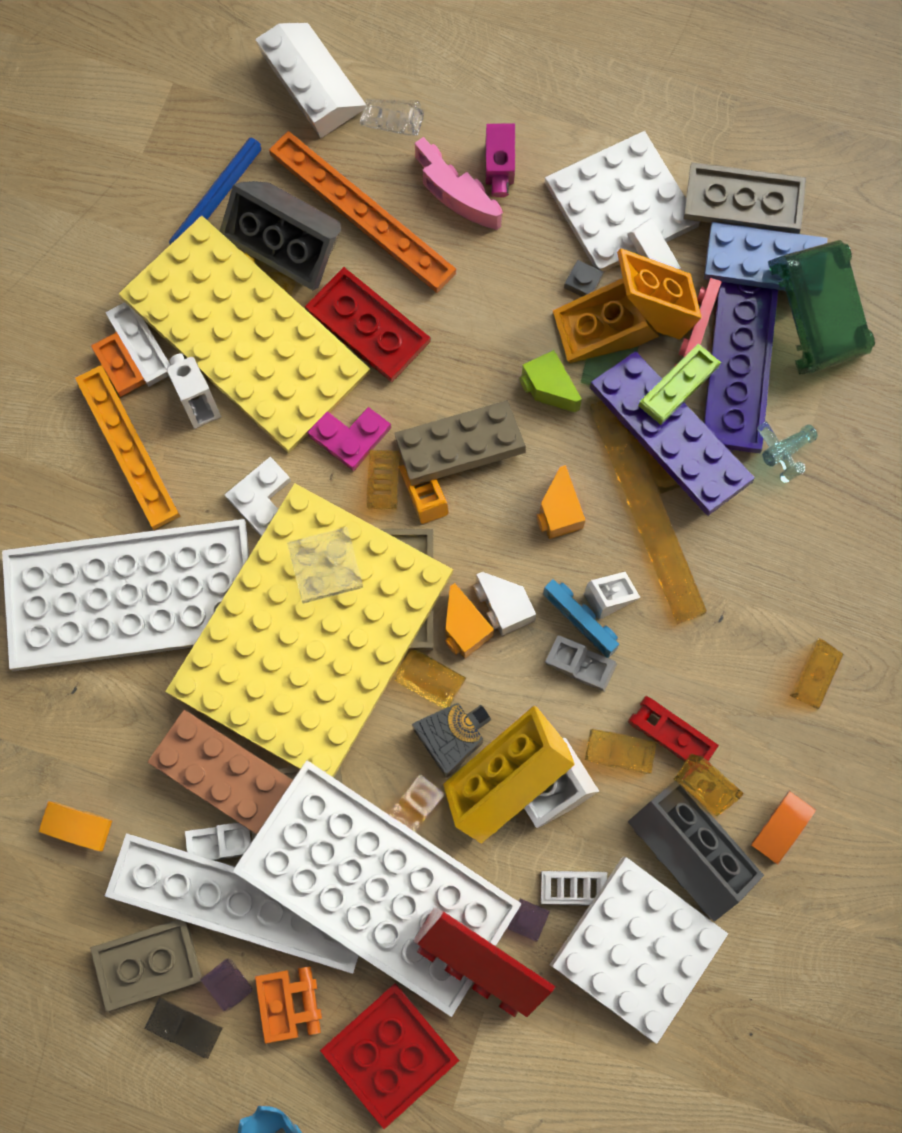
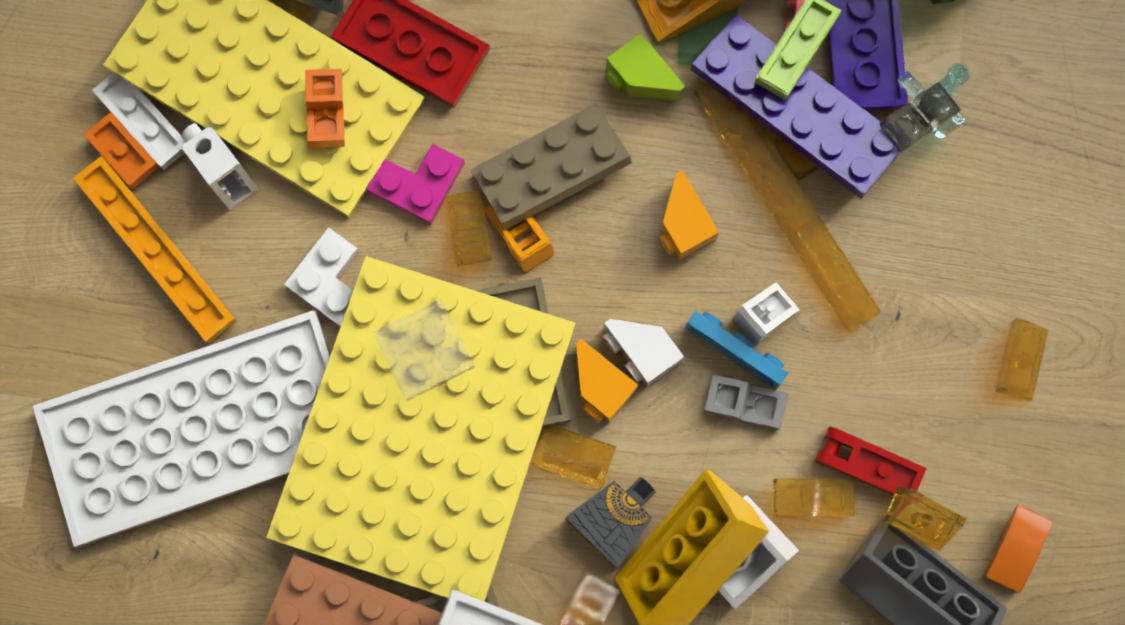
camera: 10 degrees left, 5 degrees up
(287, 361) = (324, 108): none -> orange slope
(768, 459) = (920, 117): none -> clear smoke slope

